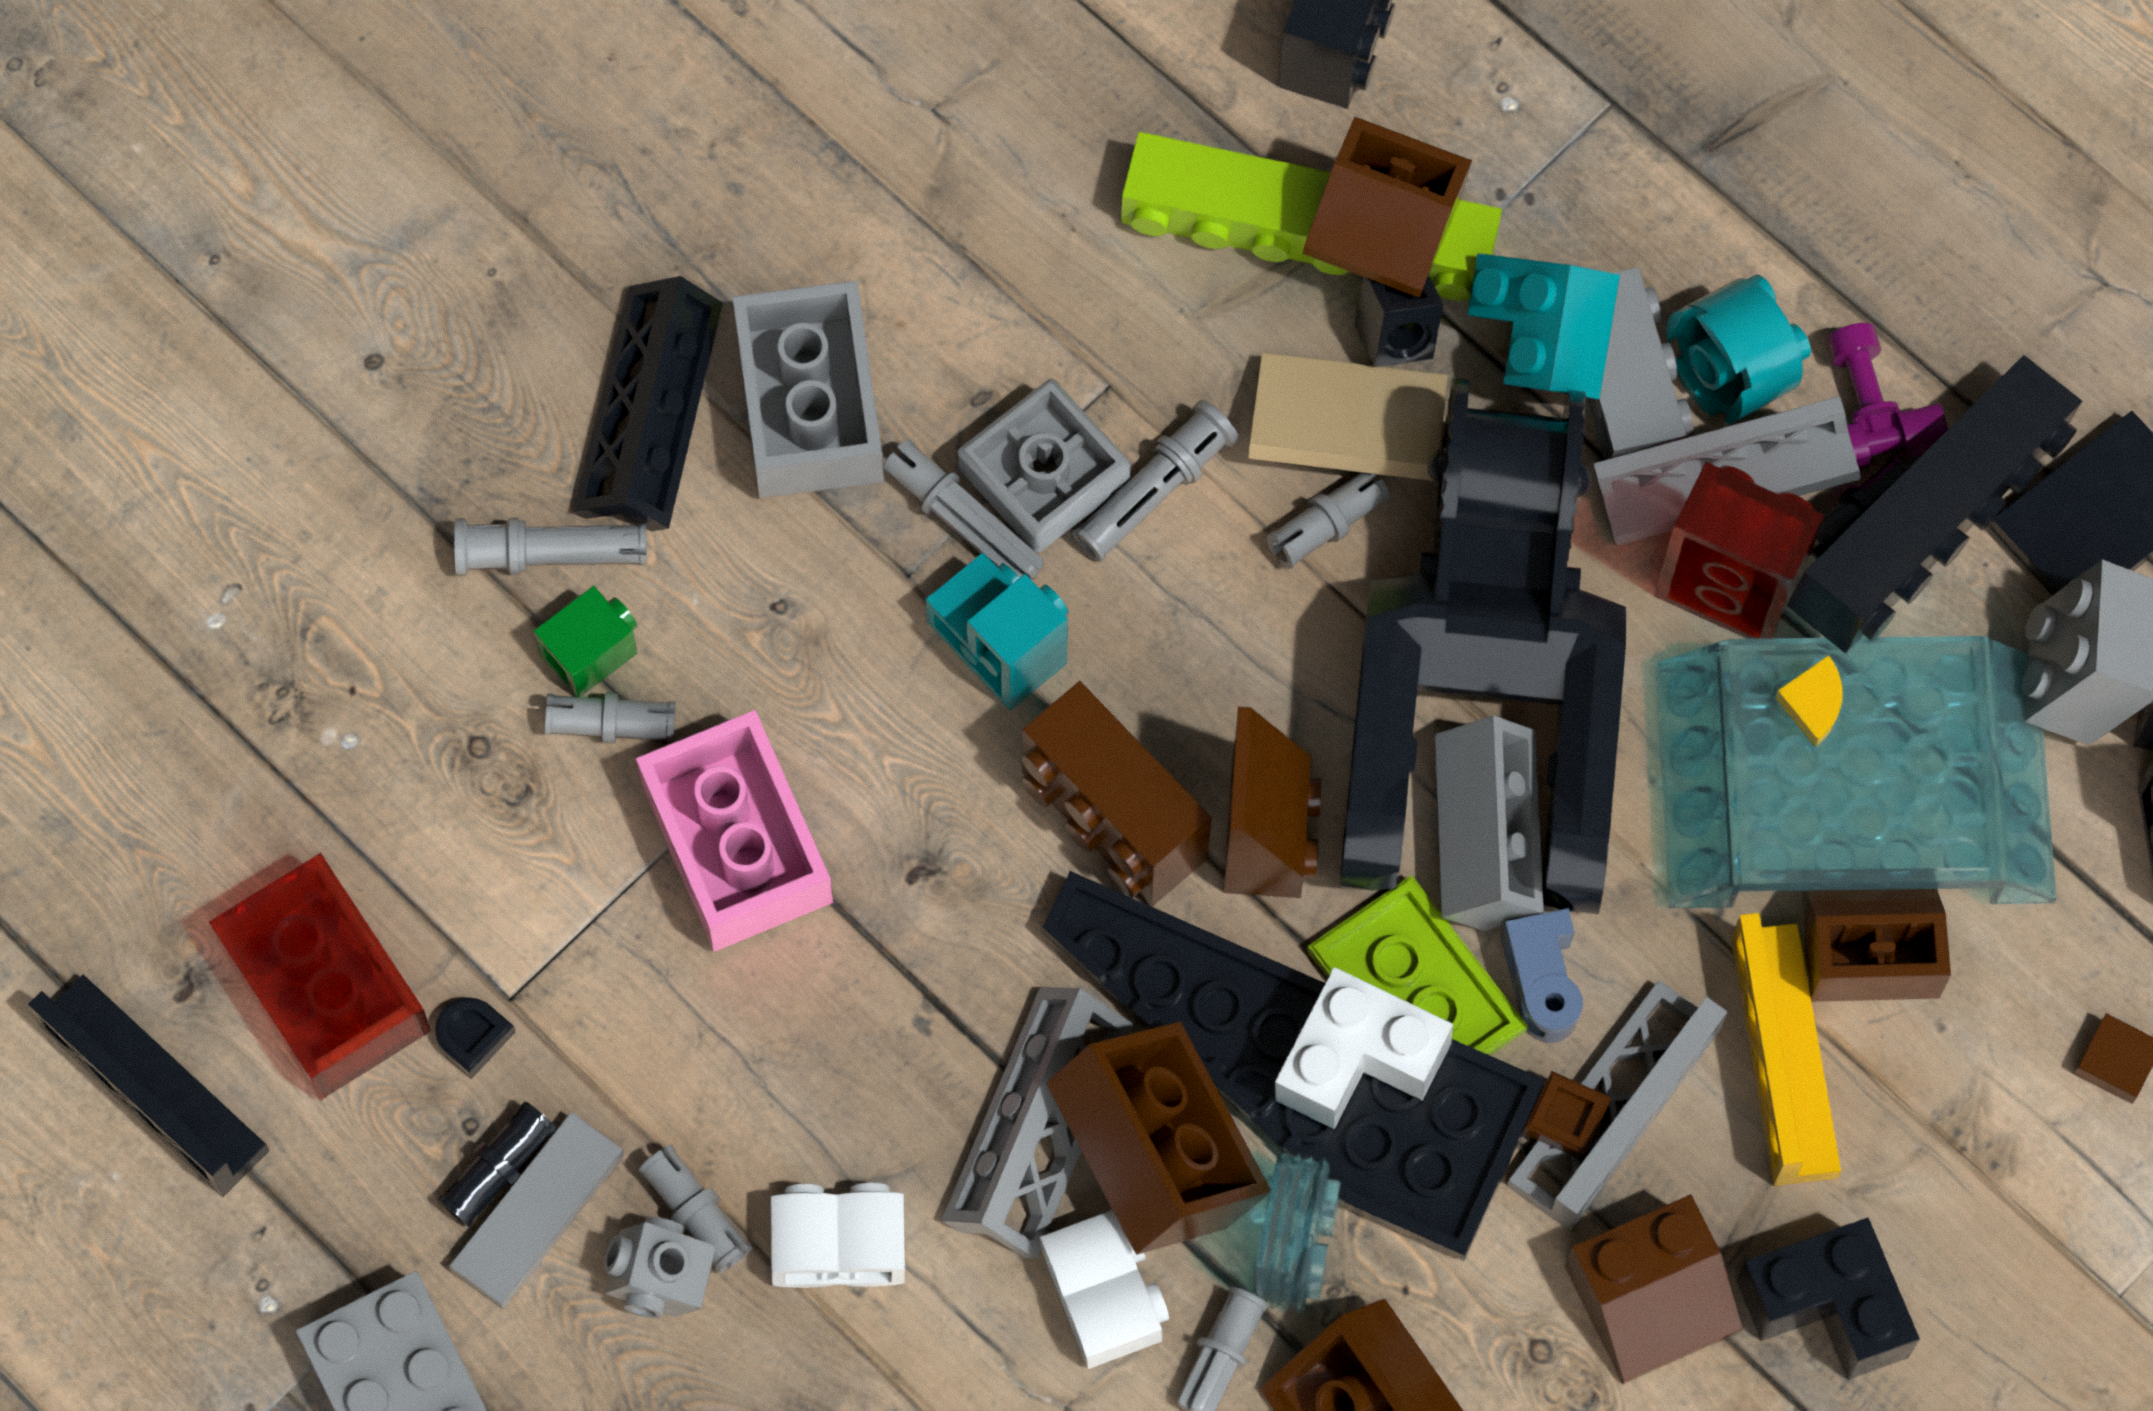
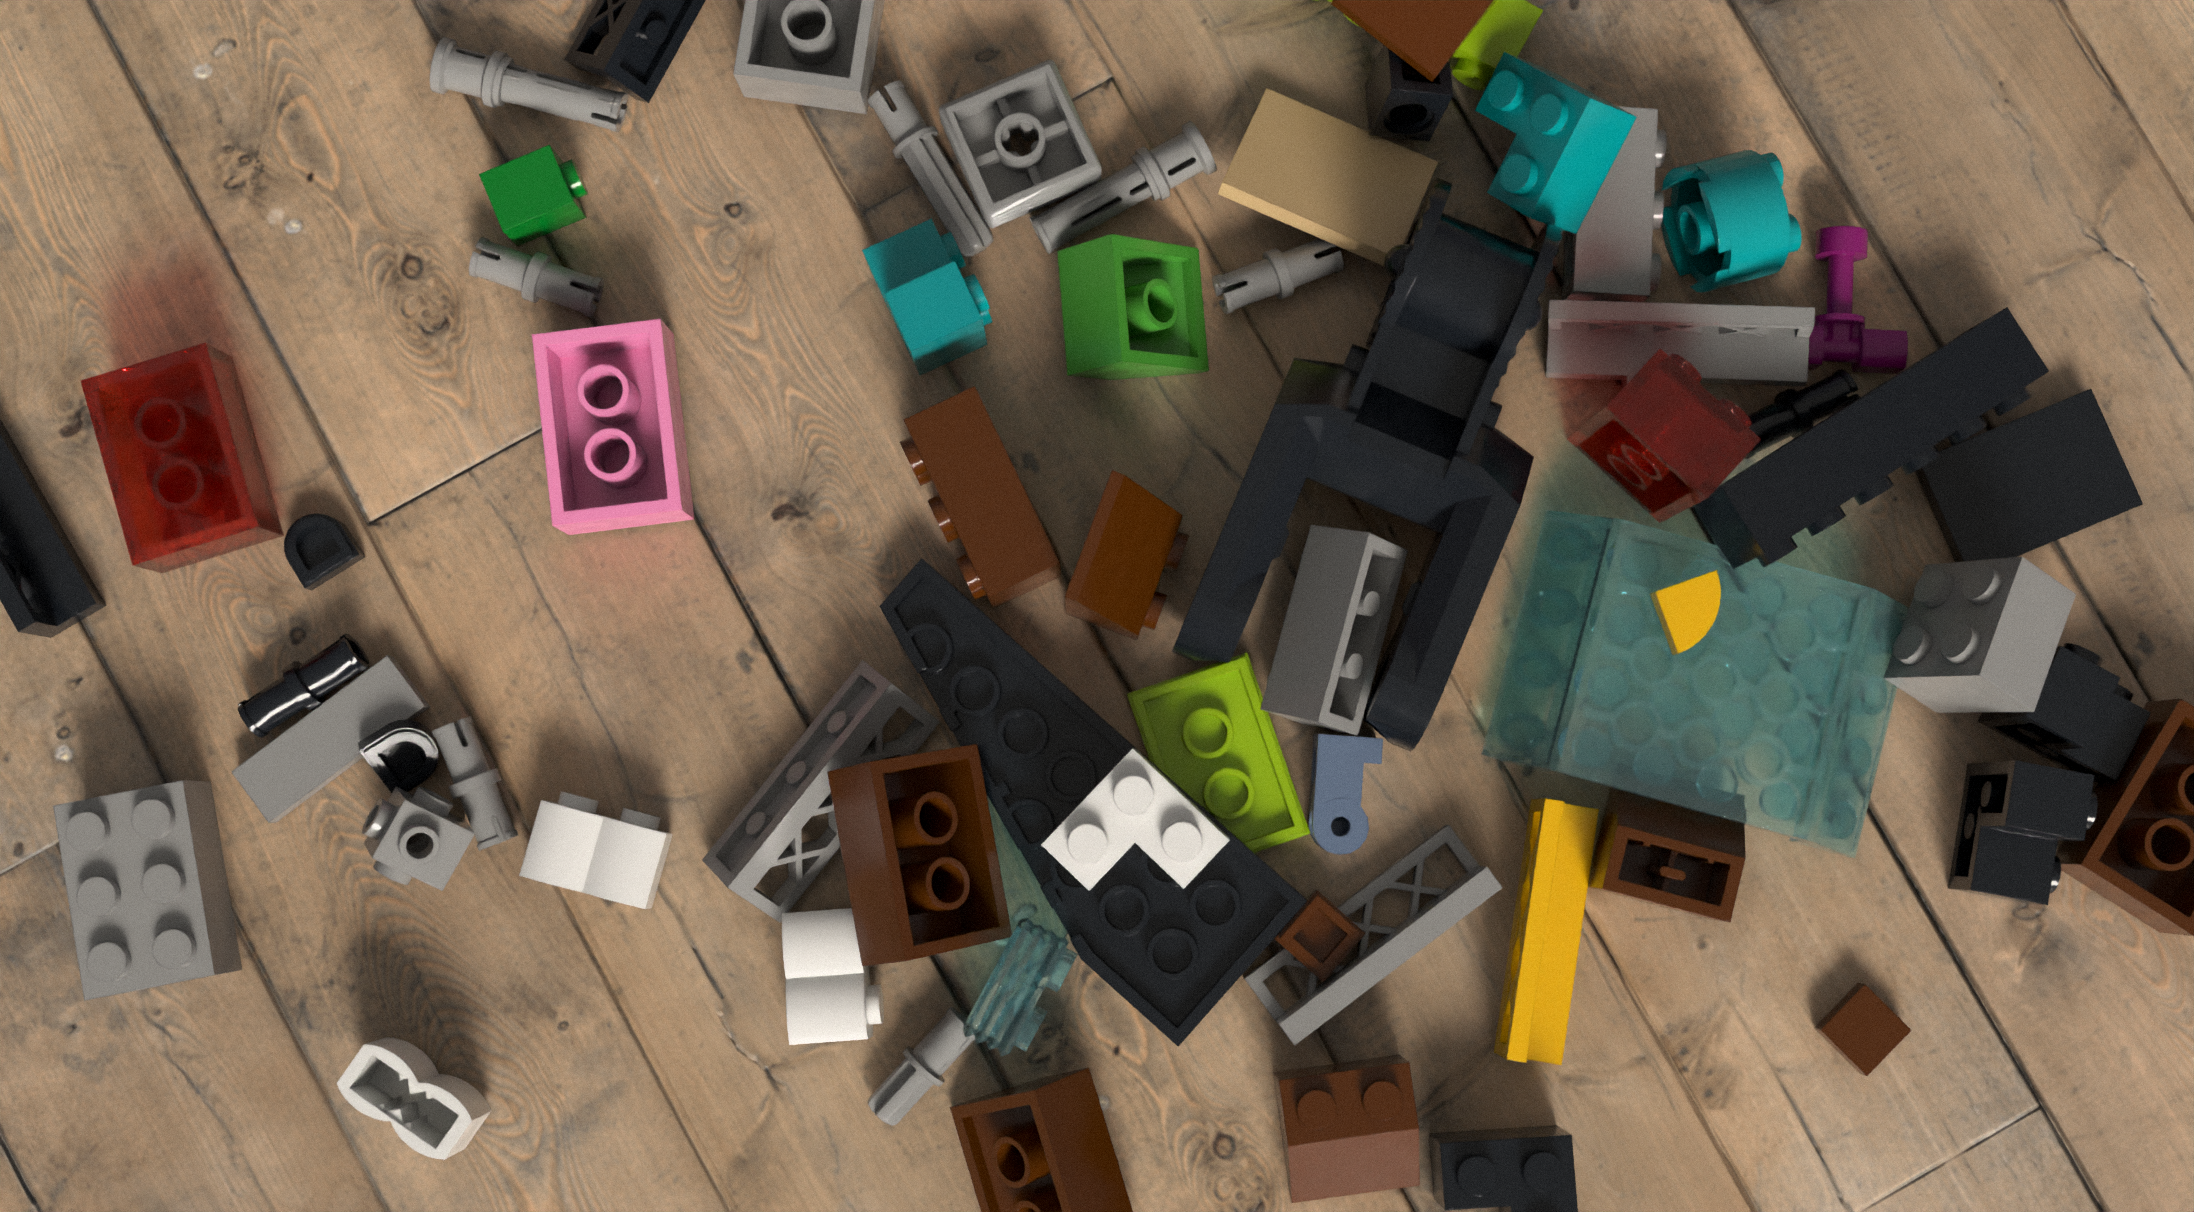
camera: 15 degrees right, 15 degrees up
(614, 1200) = (401, 754): none -> black tile
(1198, 587) = (1132, 309): none -> bright green slope

